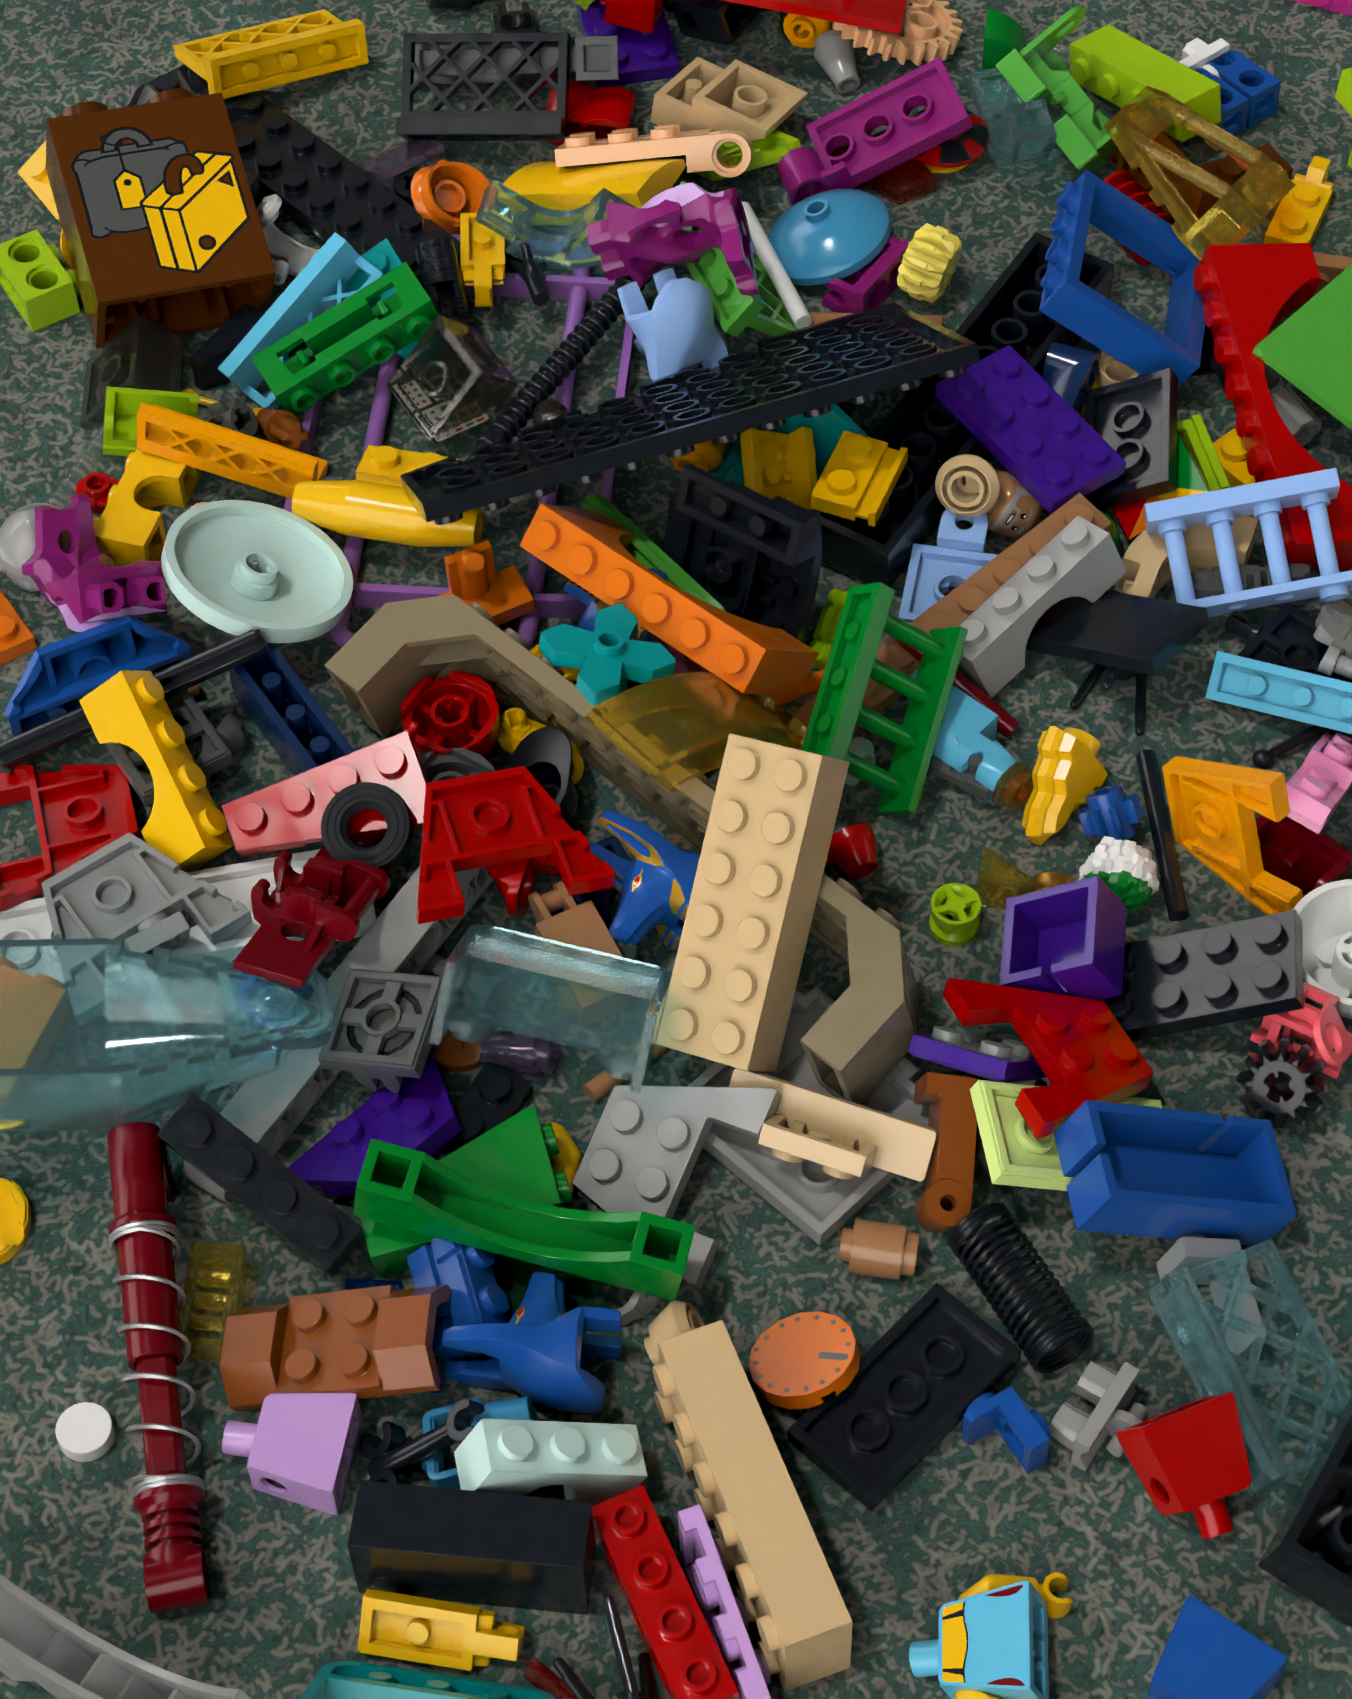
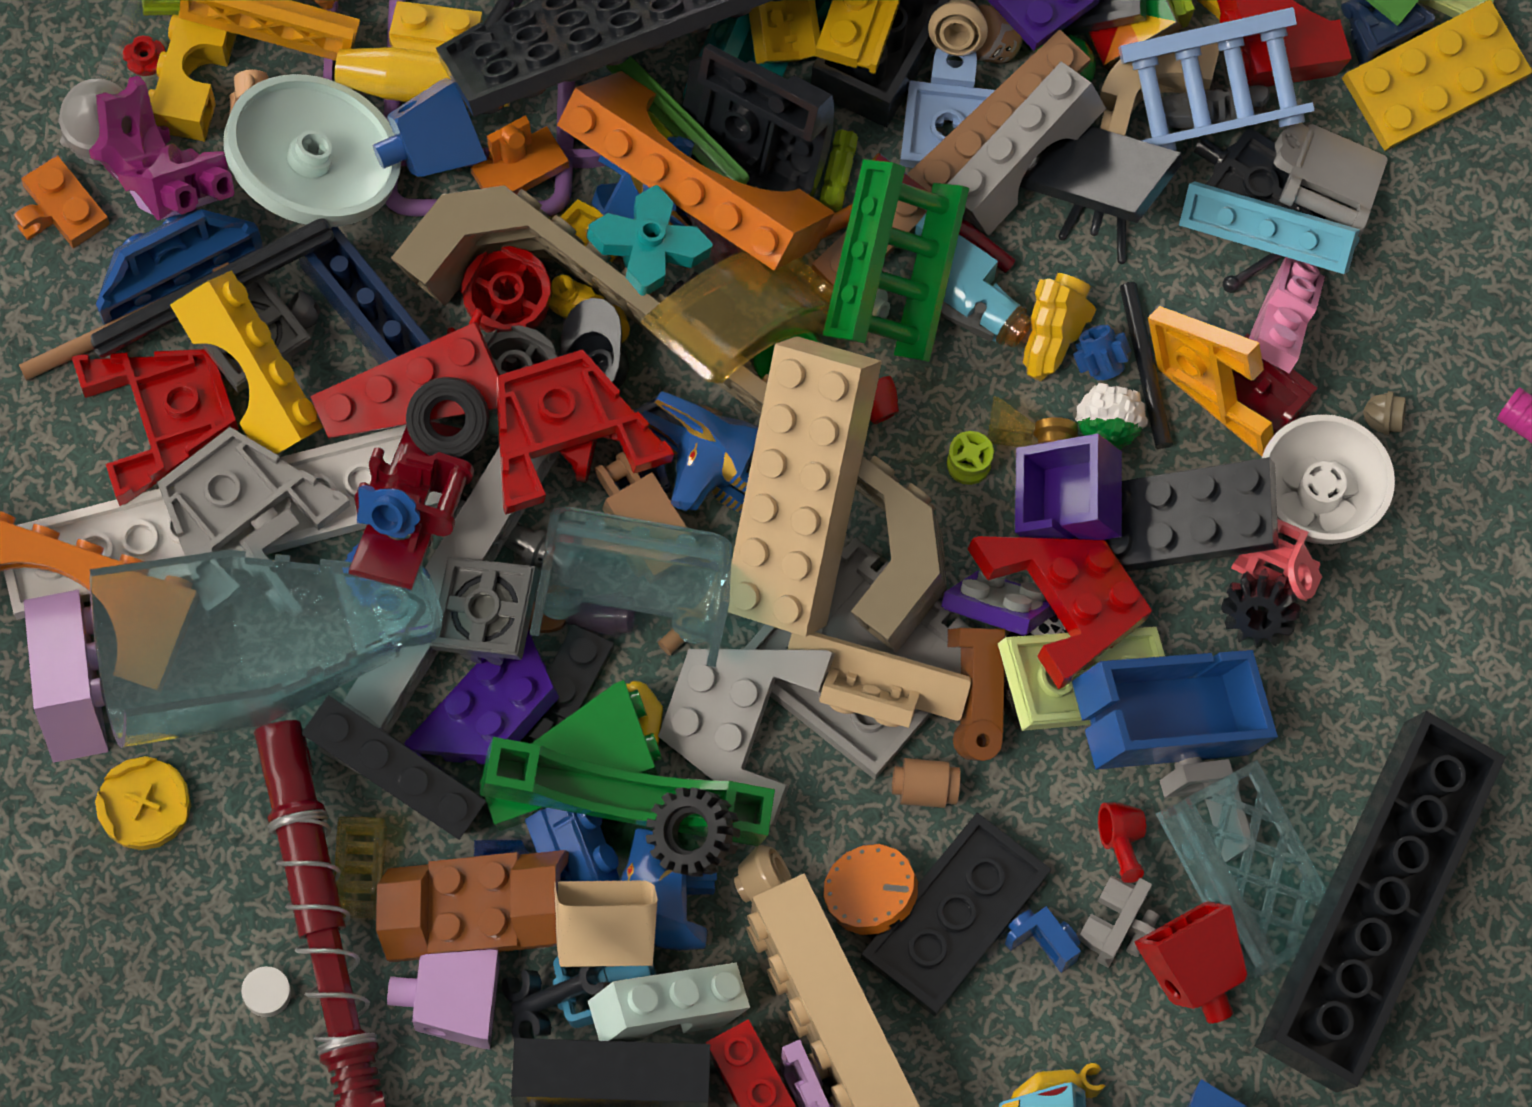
camera: 10 degrees left, 15 degrees up
(284, 905) = (387, 511): none -> blue animal
(387, 560) = (431, 133): none -> blue torso
(480, 1357) = (605, 923): none -> tan piece
(572, 1245) = (666, 827): none -> black tyre
(993, 1239) = (1006, 770): black piece -> none
(1109, 1312) = (1128, 827): none -> red bar

